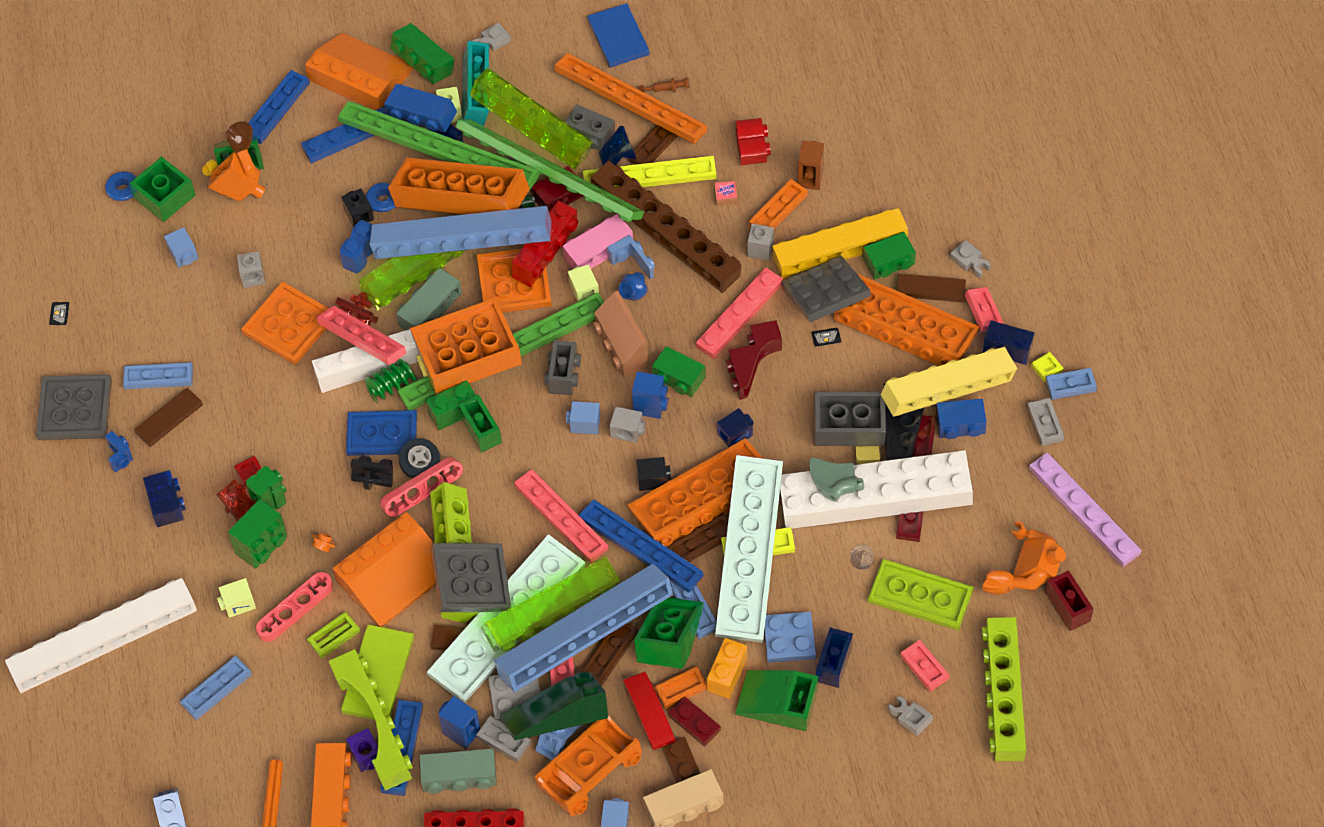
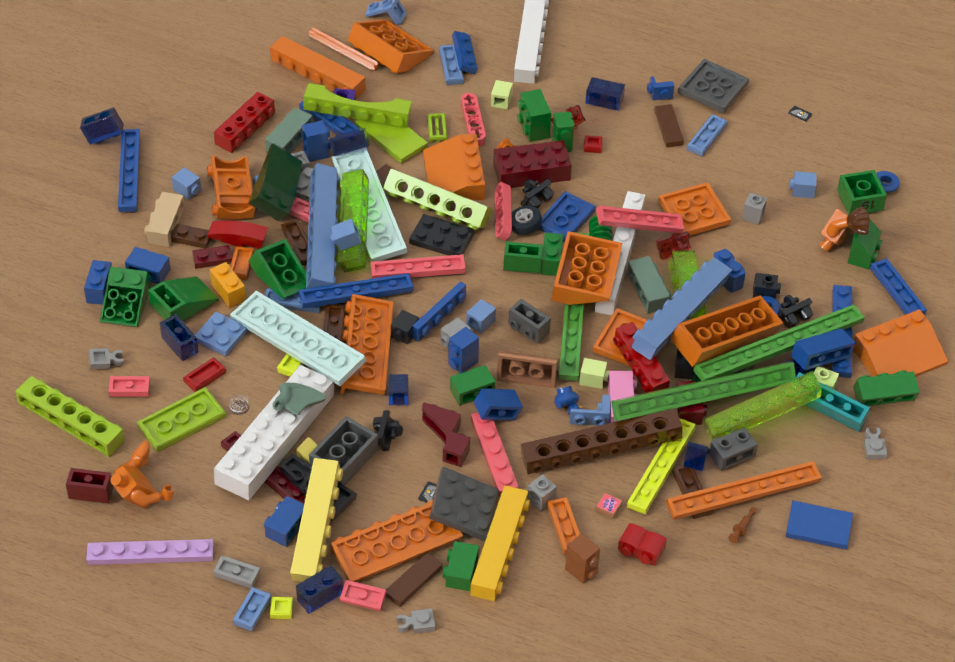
camera: 120 degrees right, 10 degrees down
(187, 682) = (464, 52): none -> blue plate
(230, 767) = (389, 44): none -> orange slope
(332, 499) = (532, 162): none -> dark red brick
(371, 170) = (789, 314): none -> black hips
(433, 686) = (349, 141): none -> clear blue brick
(470, 577) = (403, 183): dark grey plate -> none
(498, 521) = (441, 236): none -> black plate
(590, 580) = (345, 234): none -> medium blue brick
(603, 457) = (439, 311): none -> blue plate
(690, 330) = (498, 404): none -> blue brick
(761, 767) = (155, 264): none -> blue brick
(783, 413) = (388, 429): none -> black hips
(817, 757) = (125, 296): none -> green slope
(823, 794) = (97, 282): none -> blue brick
(851, 614) = (204, 374): none -> red tile

